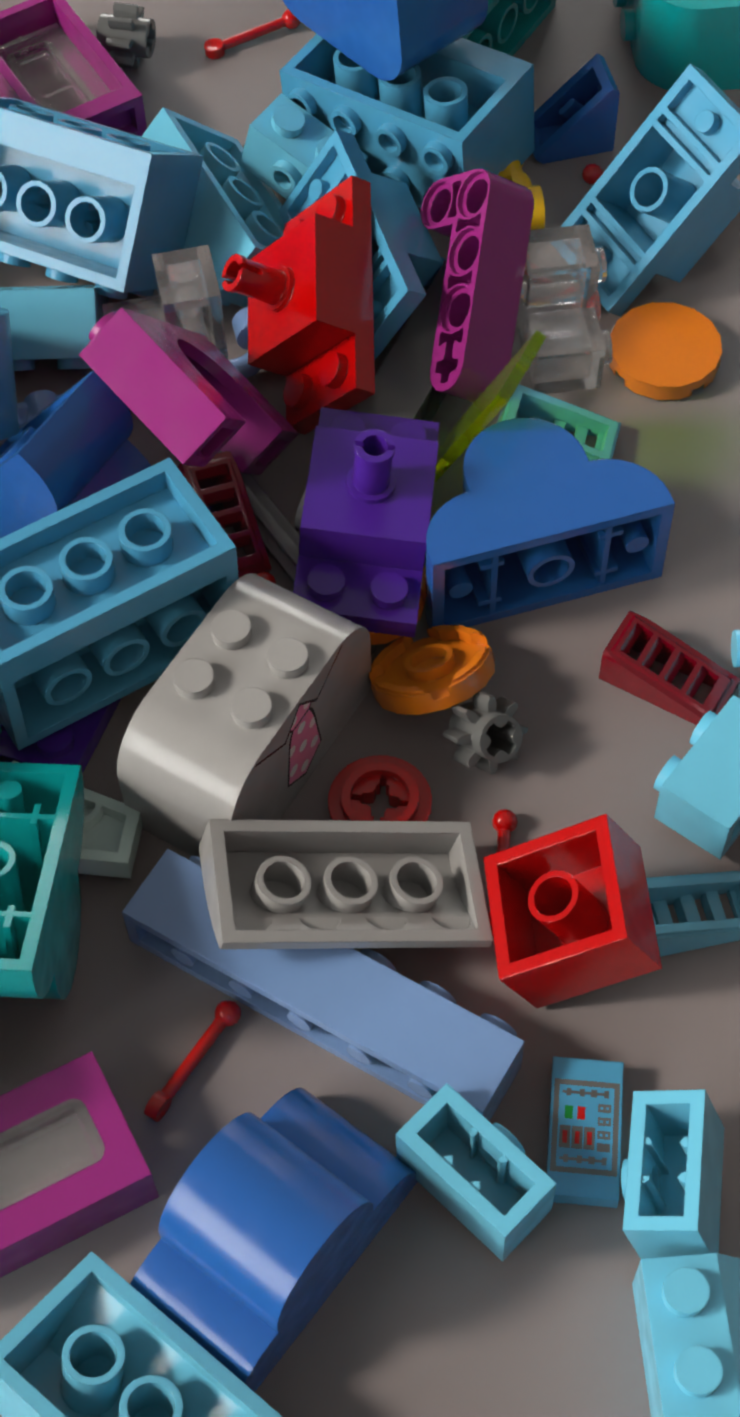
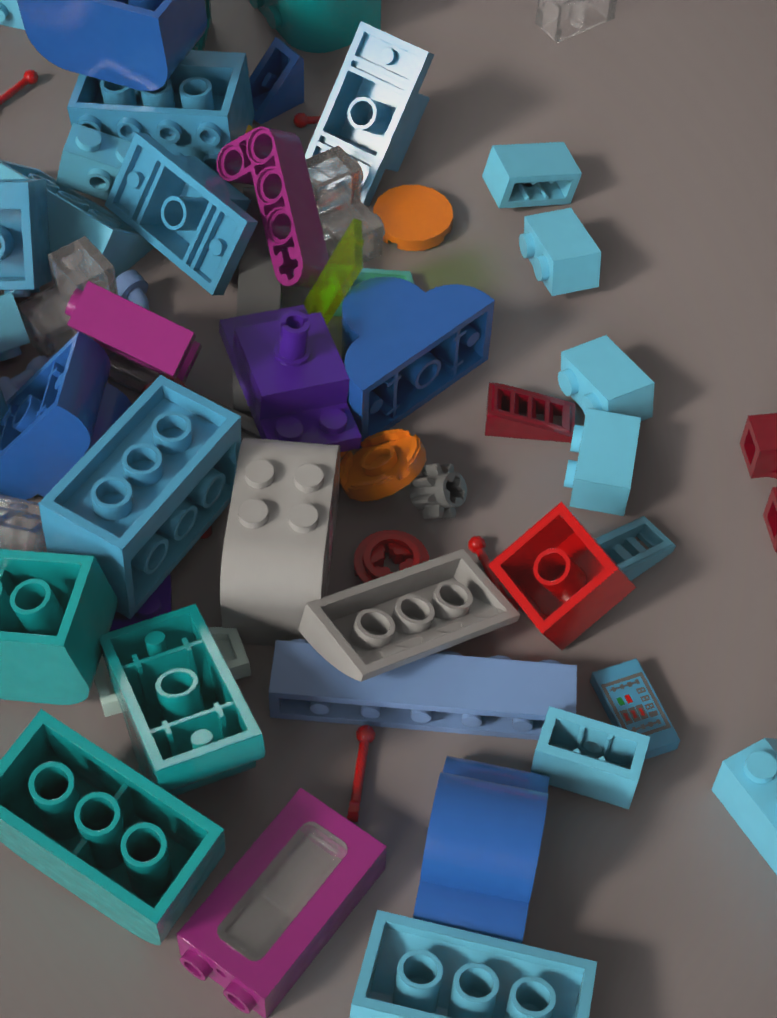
camera: 30 degrees left, 5 degrees down
(314, 304) = (179, 254): red brick -> none
(673, 1174) = (708, 706): medium azure brick -> none

